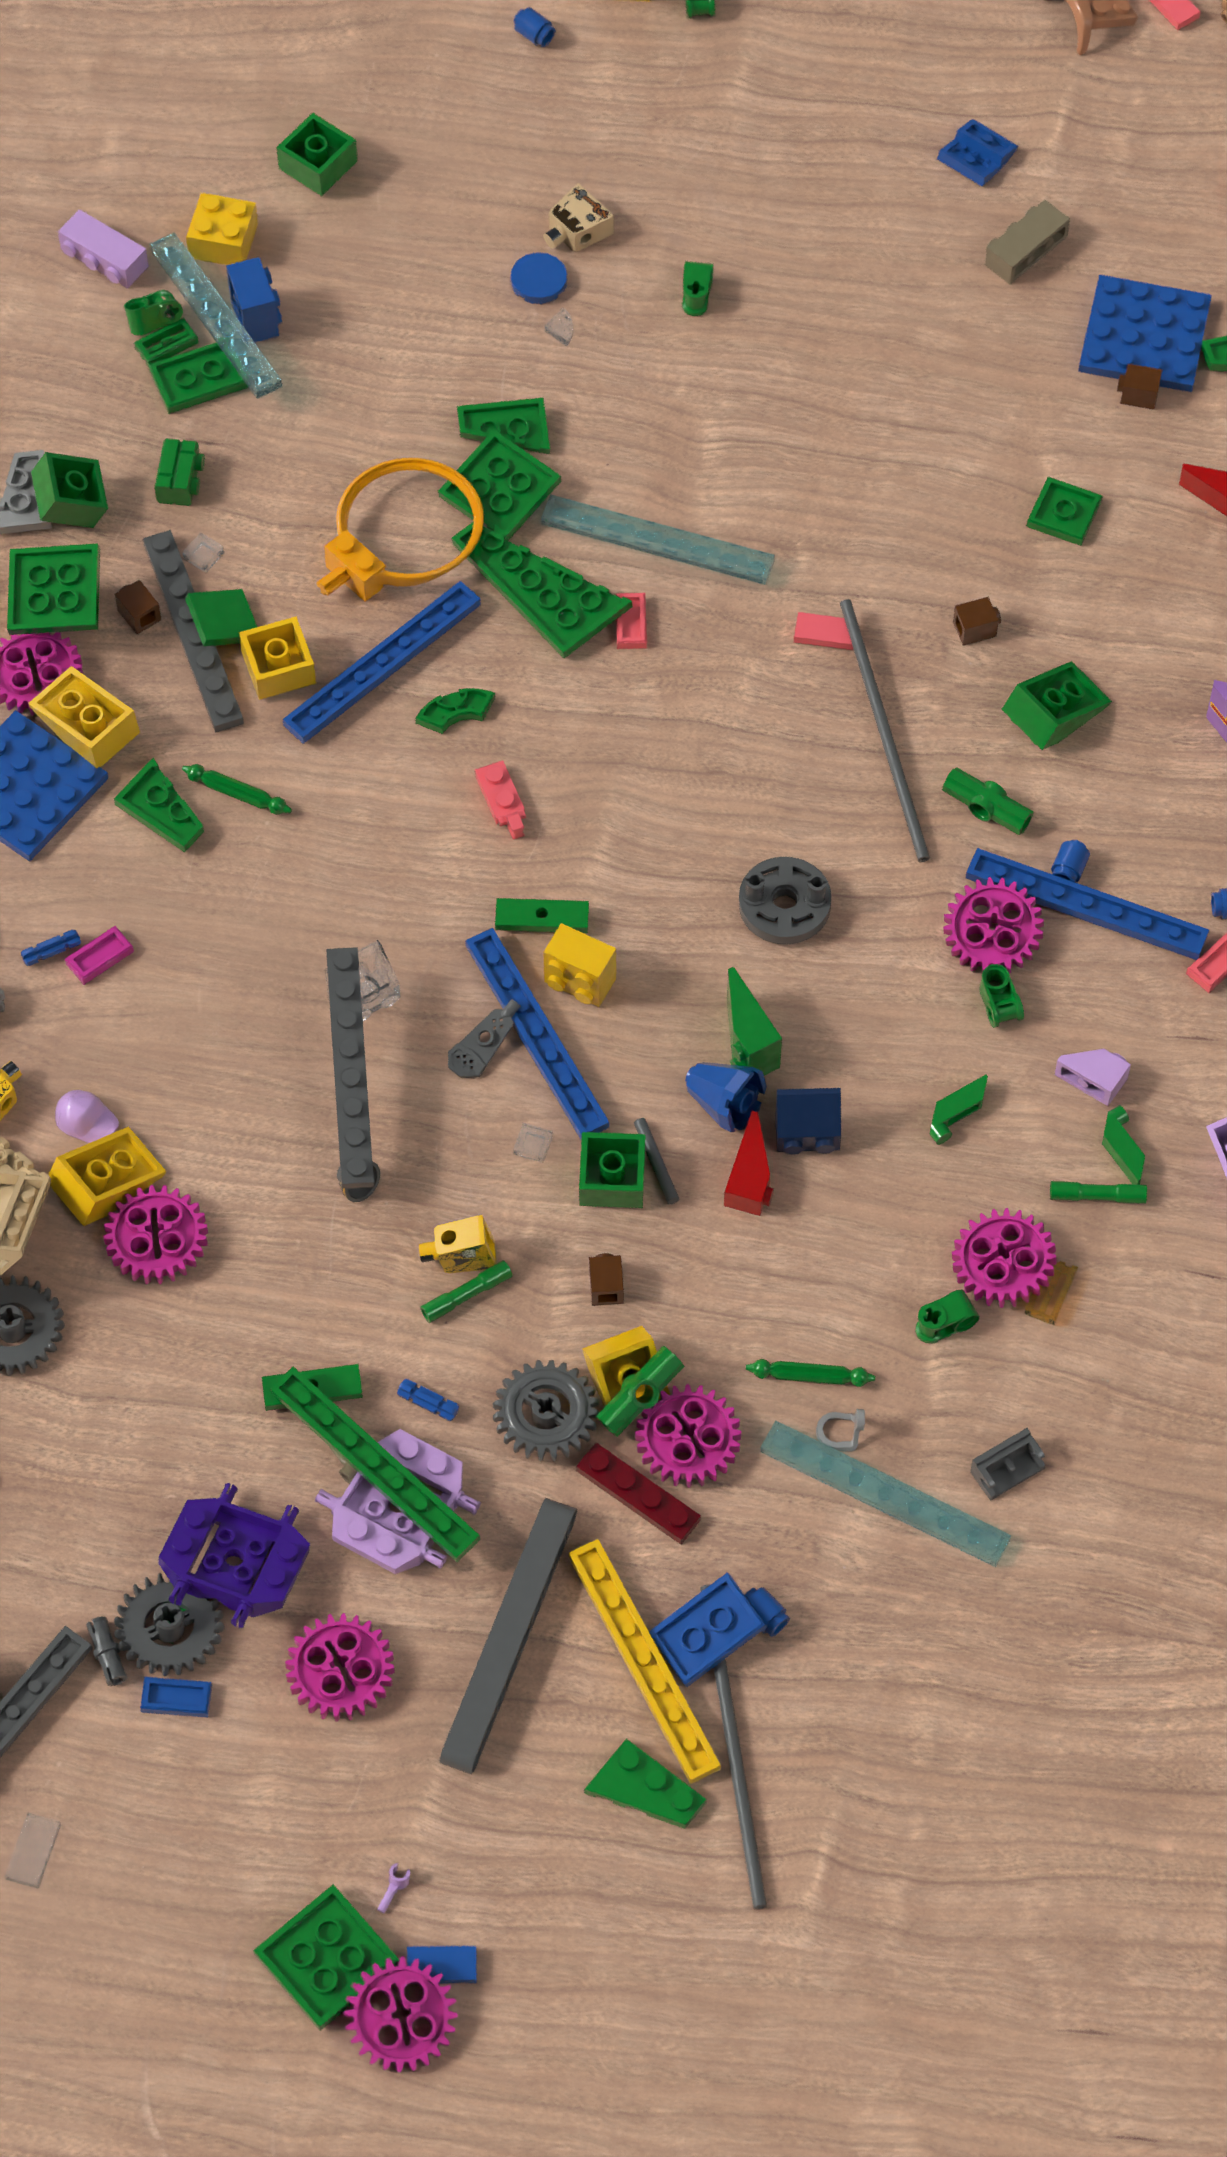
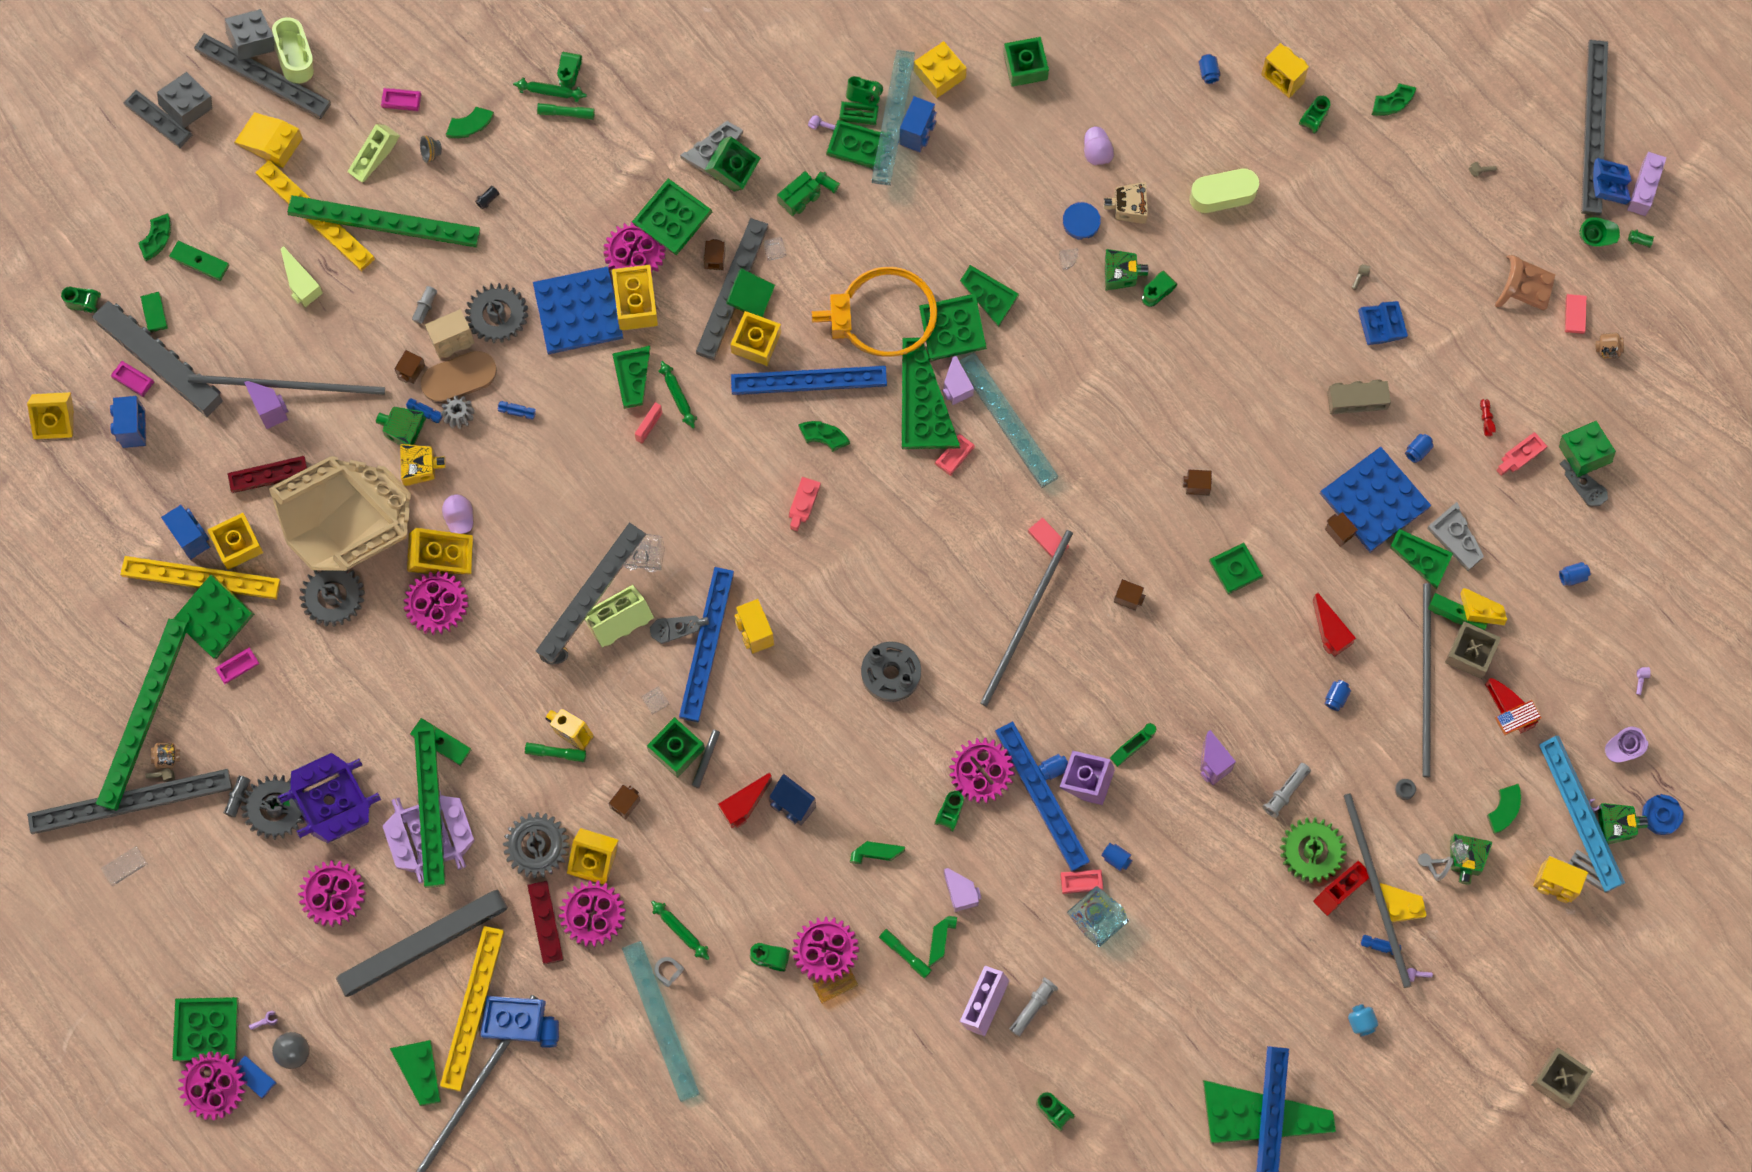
camera: 40 degrees right, 10 degrees up
(99, 955) = (536, 432): dark pink tile -> none
(103, 249) = (870, 35): lavender brick -> none
(124, 384) = (815, 121): none -> lavender hand
(176, 1697) = (249, 845): blue tile -> none
(204, 437) = (826, 181): none -> green pin
(232, 843) = (648, 423): none -> coral tile
(402, 1078) = (618, 616): none -> yellowish green slope
(428, 1399) = (489, 793): blue axle -> none
(464, 1888) = (290, 1050): none -> dark grey piece
(482, 191) = (1098, 147): none -> lavender piece
(525, 914) = (756, 575): green tile -> none
(562, 539) = (957, 384): none -> lavender slope
(635, 294) = (1122, 269): none -> green torso
(655, 1376) = (573, 874): green piece -> none
(672, 136) = (1224, 190): none -> yellowish green plant
(726, 1092) = (767, 752): blue cone -> none
(752, 1034) = (803, 730): green slope -> none
(904, 115) = (1362, 271): none -> dark tan hand
(938, 450) = (1198, 482): none -> reddish brown brick
(987, 801) = (1043, 699): green piece -> none
(1008, 1464) = (730, 1056): dark grey hinge -> none
(1054, 704) = (1128, 674): green slope -> none
(1120, 841) = (1088, 777): none -> medium lavender slope
(1135, 771) = (1134, 744): none -> green piece
(1142, 246) = (1419, 448): none -> blue brick
(1182, 167) = (1489, 426): none -> red piece

